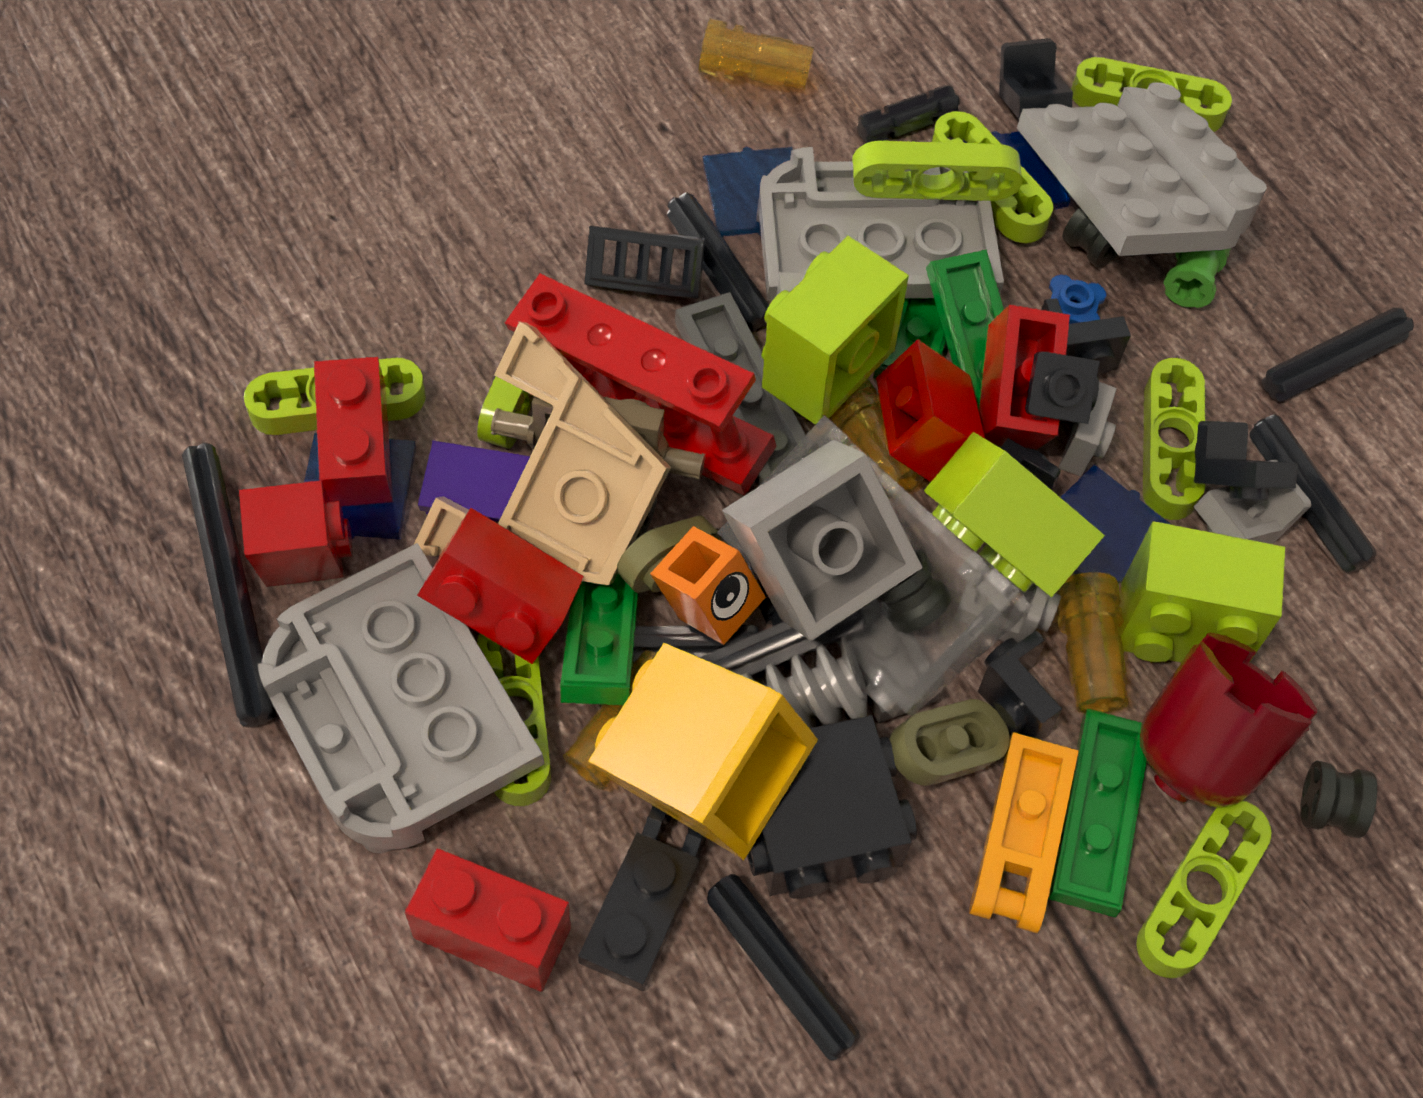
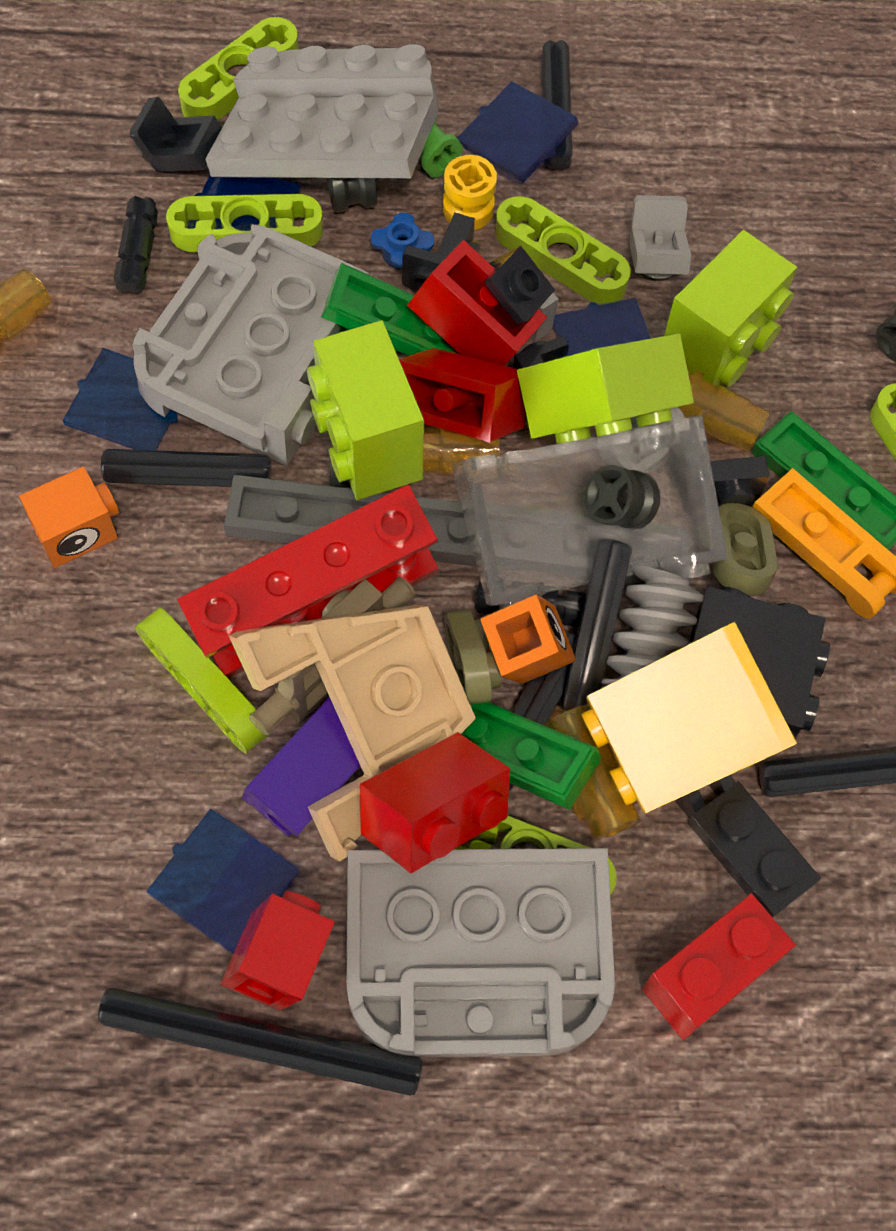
camera: 60 degrees left, 5 degrees up
(291, 383) = (84, 890): lime beam -> none
(353, 431) = (192, 849): red brick -> none
(609, 196) = (71, 515): none -> orange brick
(692, 268) = (188, 518): black slope -> none
(823, 538) = (565, 526): light grey brick -> none
(991, 169) = (240, 252): lime beam -> none
(1167, 325) = (470, 189): none -> yellow wheel
(1222, 461) = (641, 222): black bracket -> none
(1222, 724) = (838, 361): dark red cylinder -> none
(1273, 334) = (518, 131): none -> clear blue piece
(1326, 512) = (622, 189): black axle -> none

